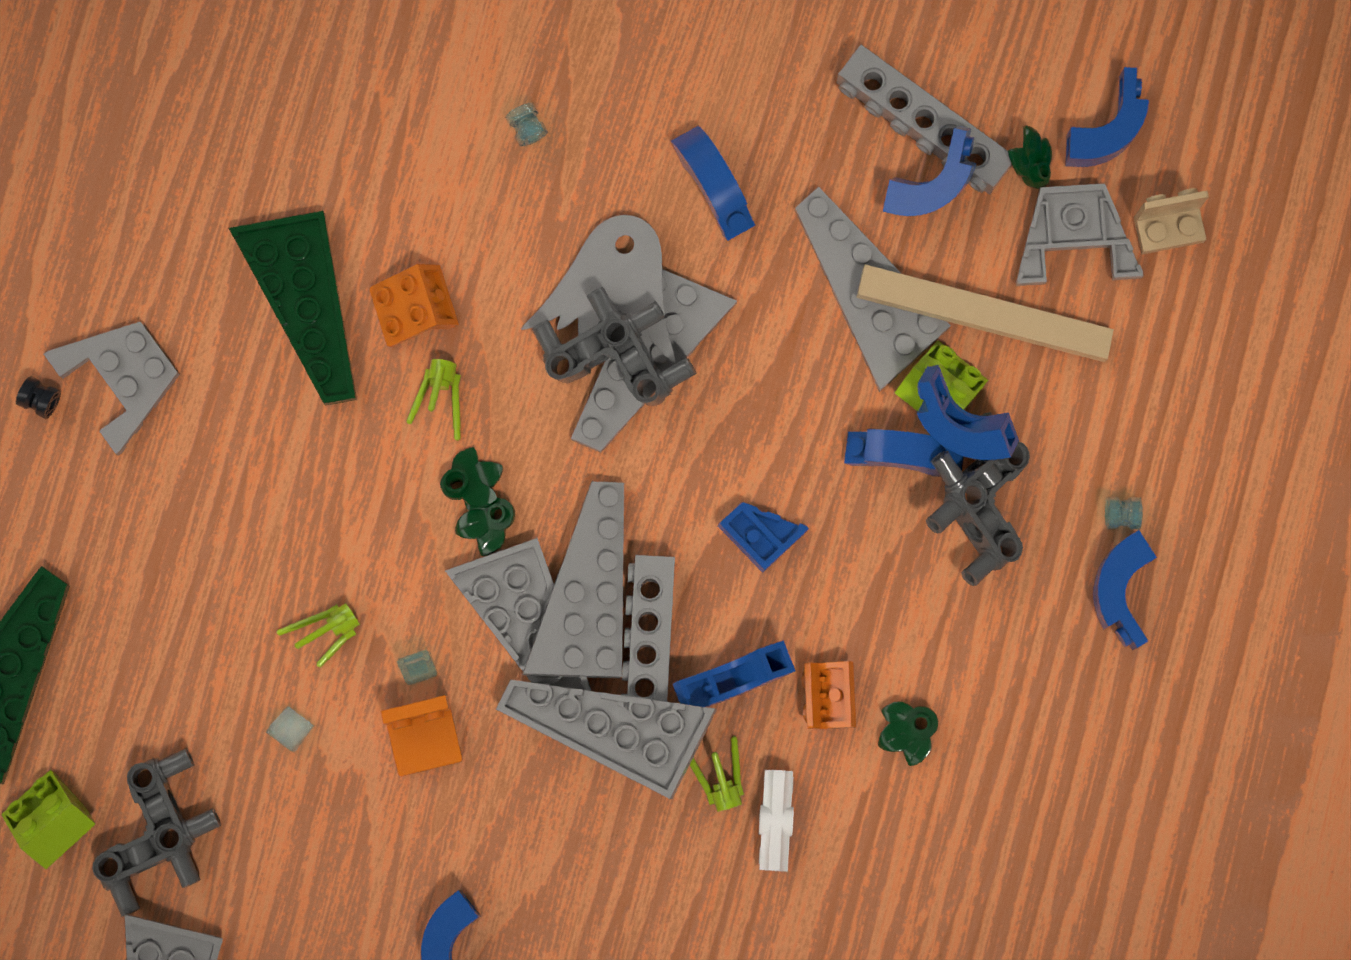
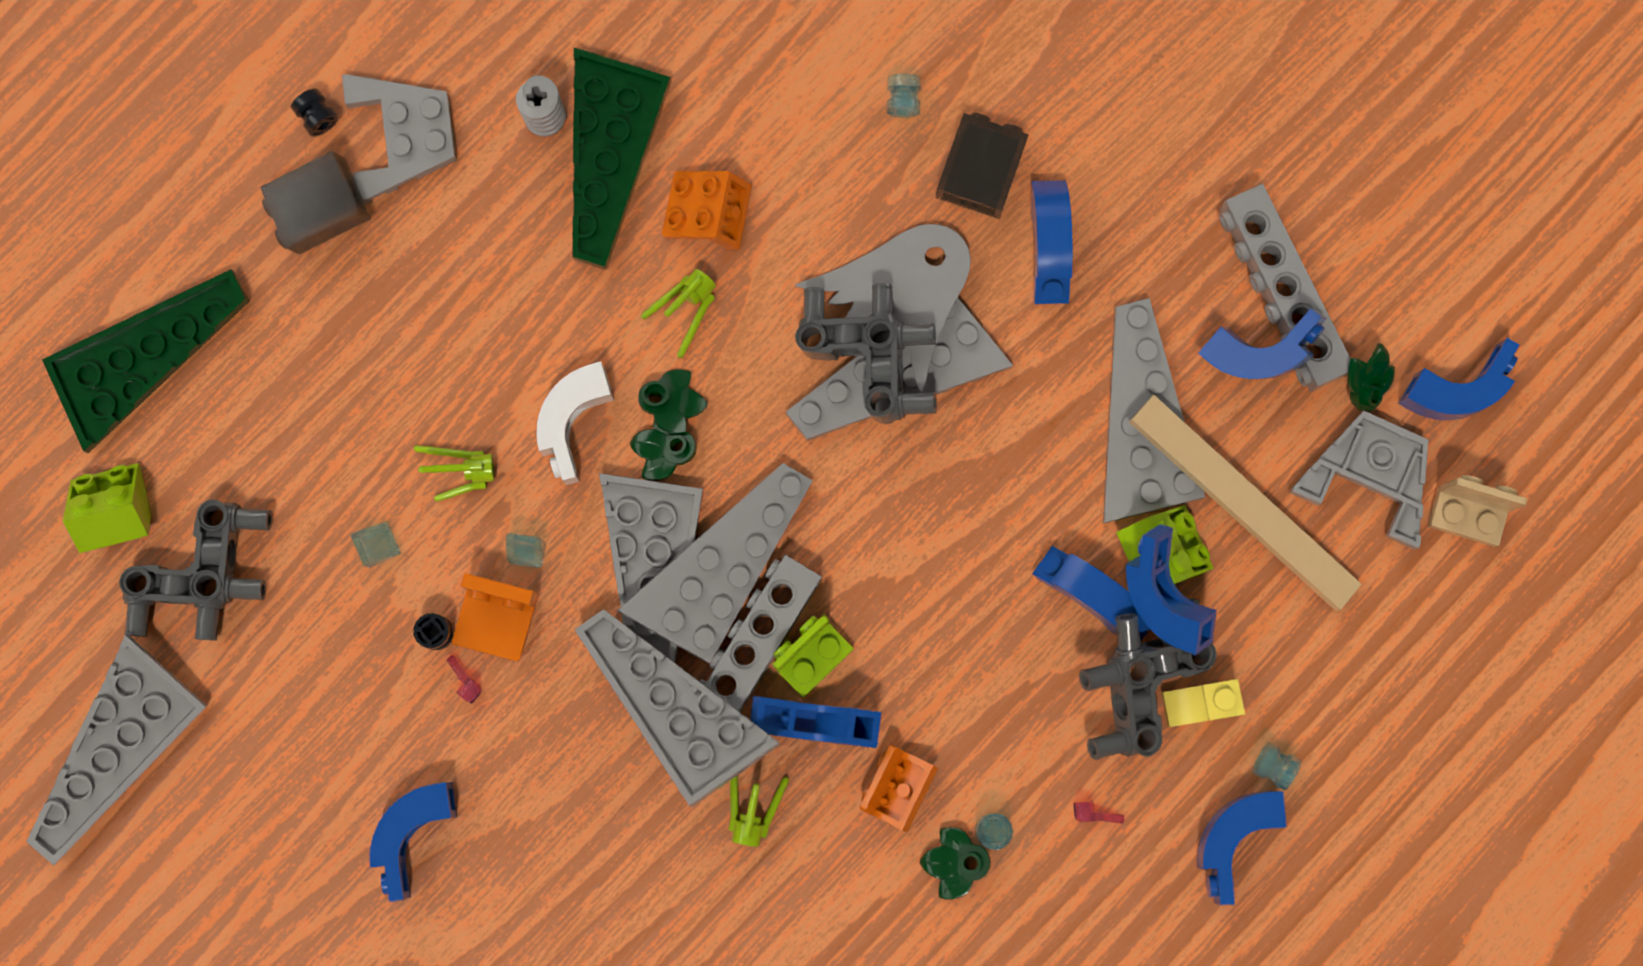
camera: 30 degrees right, 0 degrees up
(81, 473) = (314, 203): none -> clear smoke brick
(221, 283) = (541, 106): none -> light grey piece
(384, 527) = (561, 407): none -> white arch
(384, 773) = (439, 634): none -> black wheel
(433, 807) = (469, 689): none -> clear pink hand
(622, 148) = (982, 165): none -> clear smoke brick
(702, 626) = (812, 655): none -> lime bracket
(760, 534) = (915, 599): blue wing -> none
(776, 820) = (782, 880): white piece -> none
(929, 686) = (998, 833): none -> clear light blue wheel
(991, 633) = (1085, 813): none -> clear pink hand
(1037, 494) = (1203, 703): none -> light yellow arch

